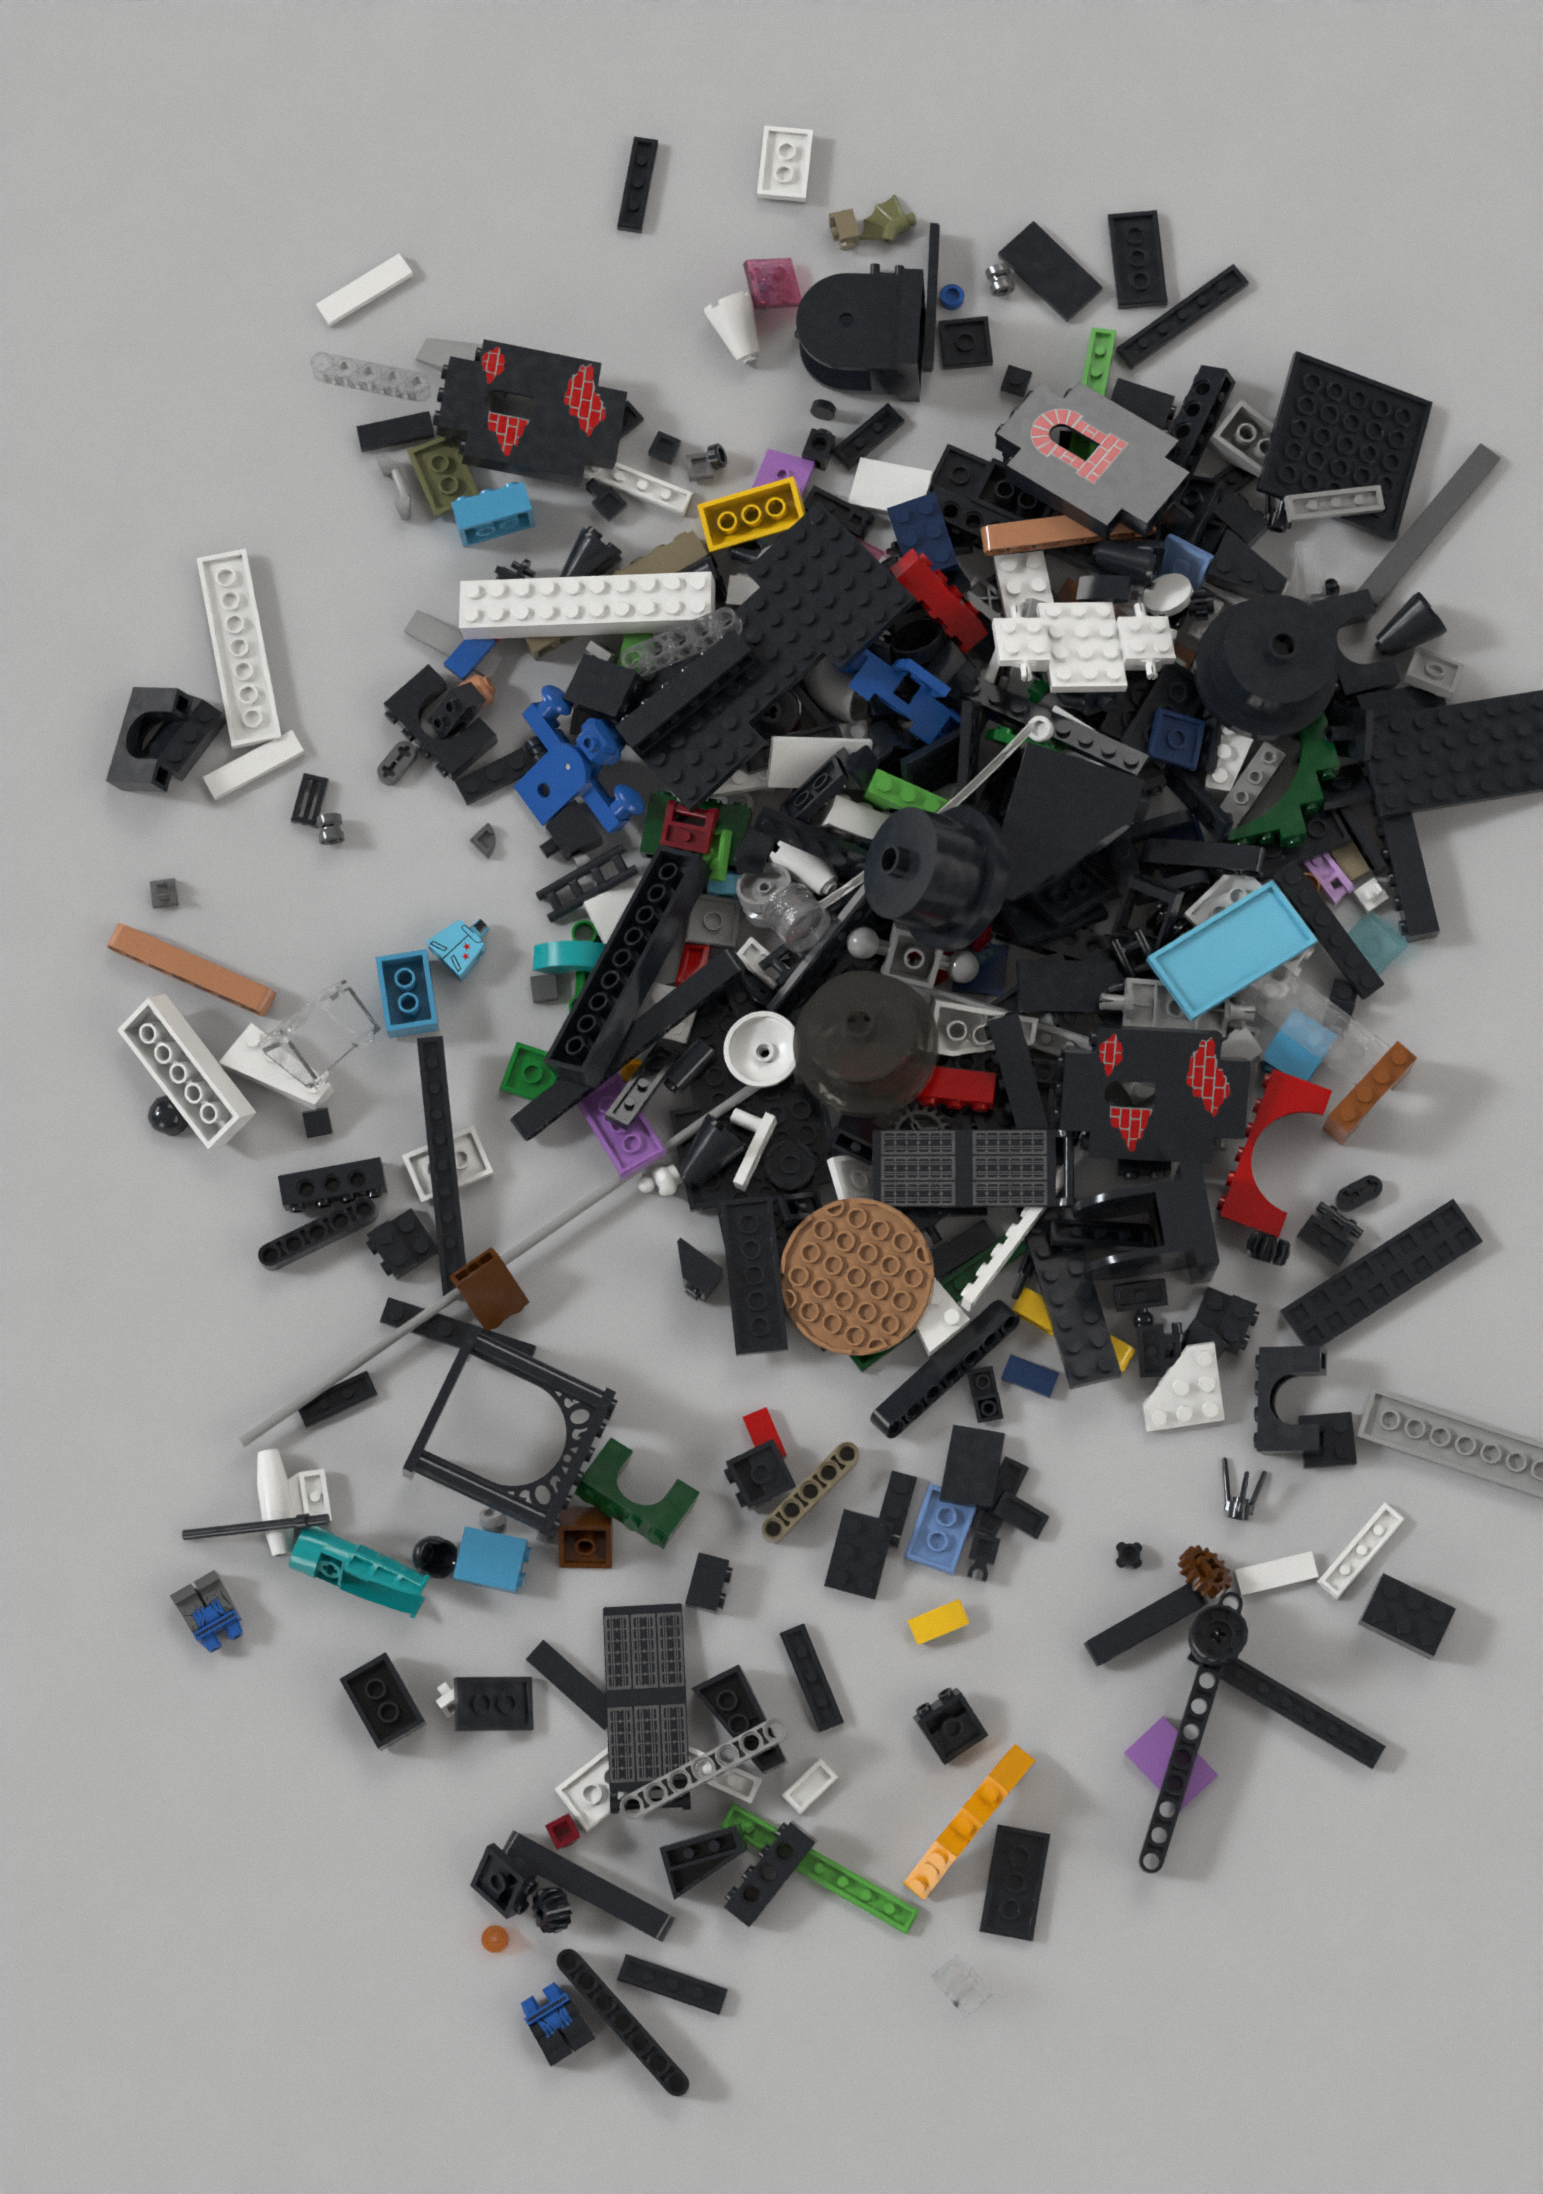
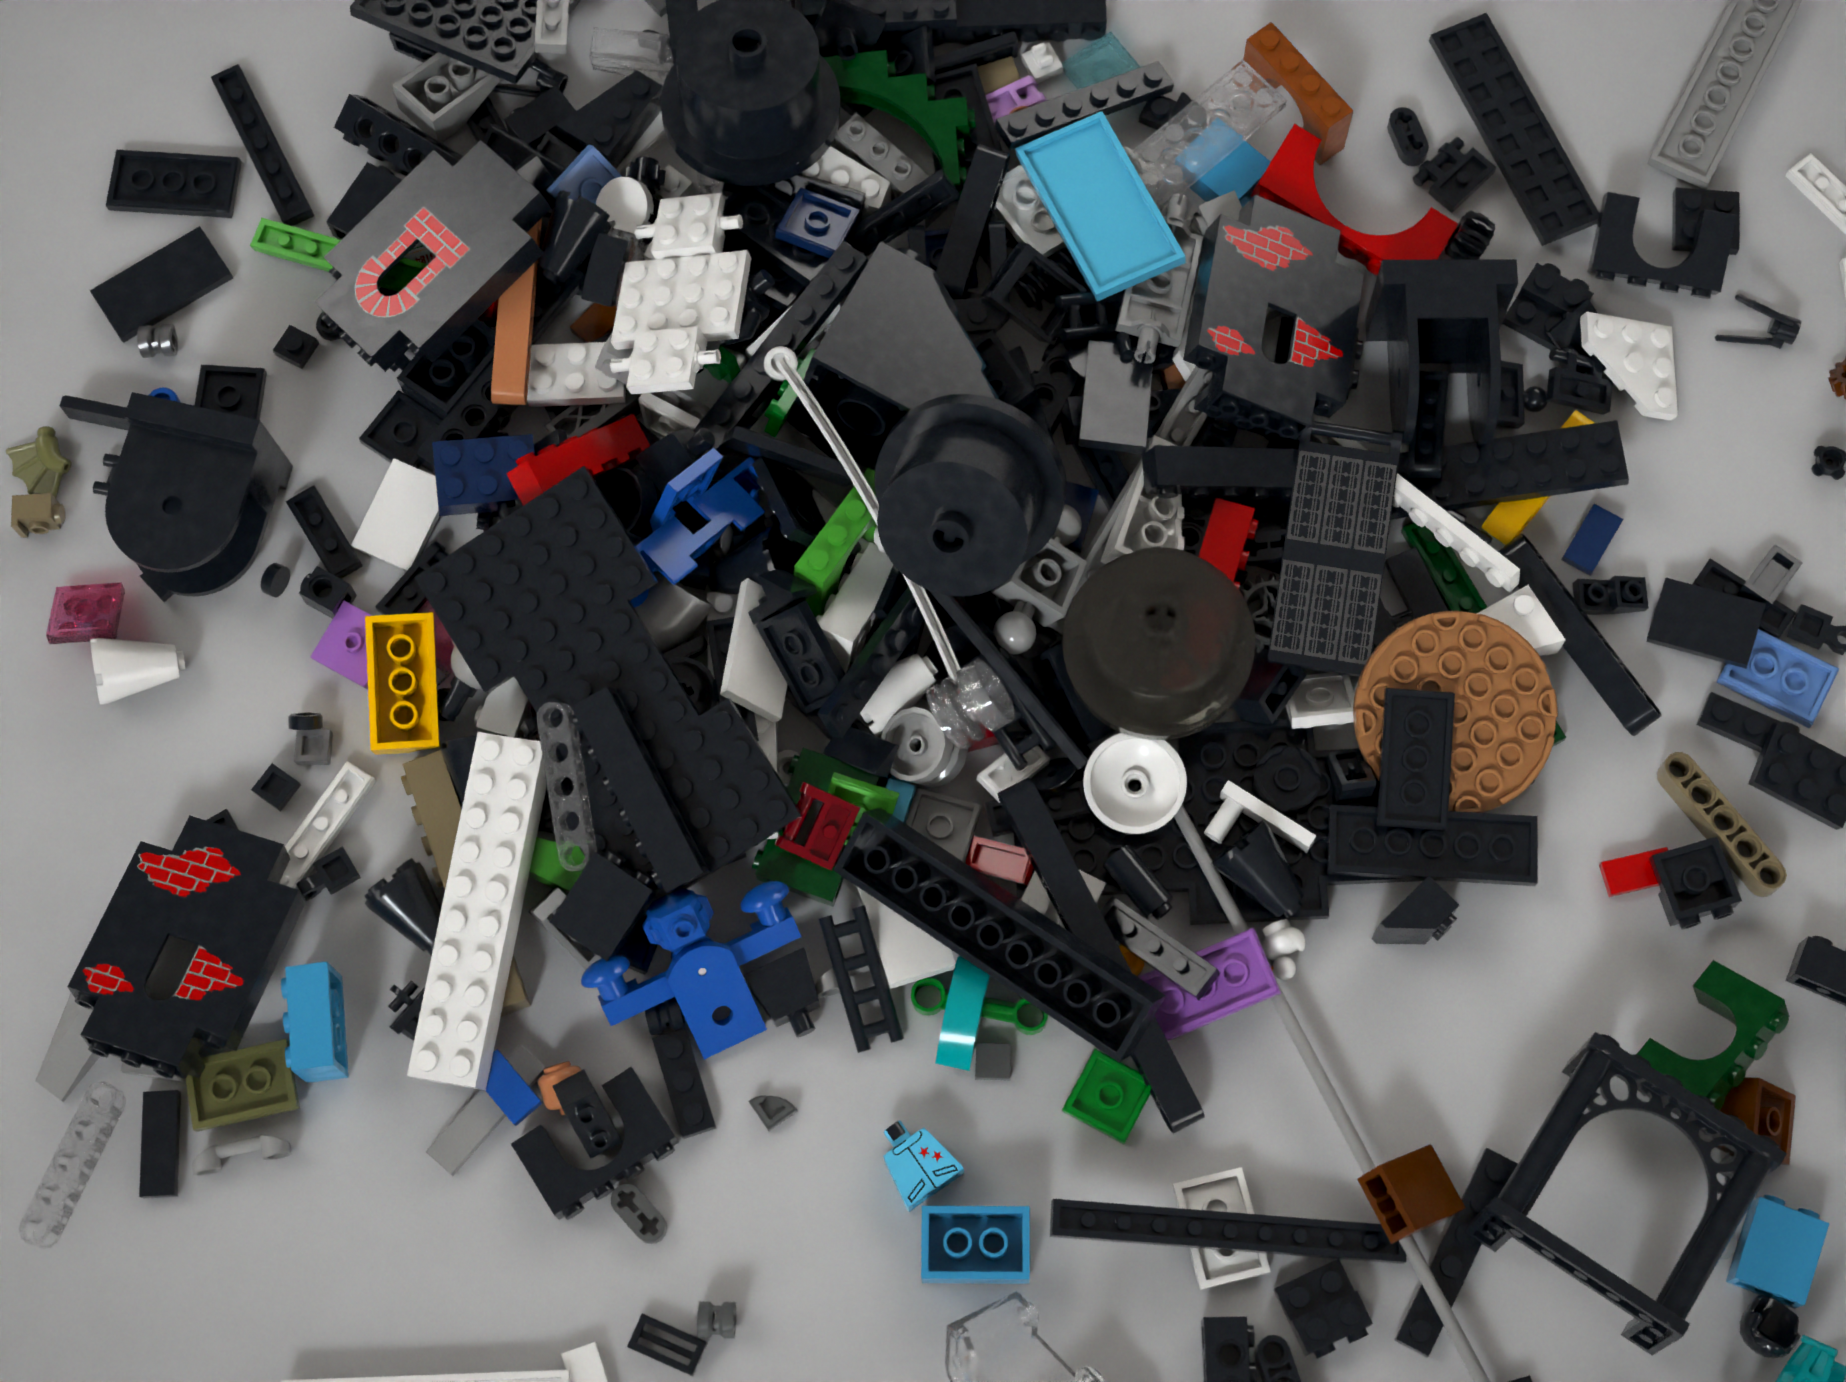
camera: 80 degrees left, 5 degrees down
(812, 1249) = (1415, 759): none -> black tile

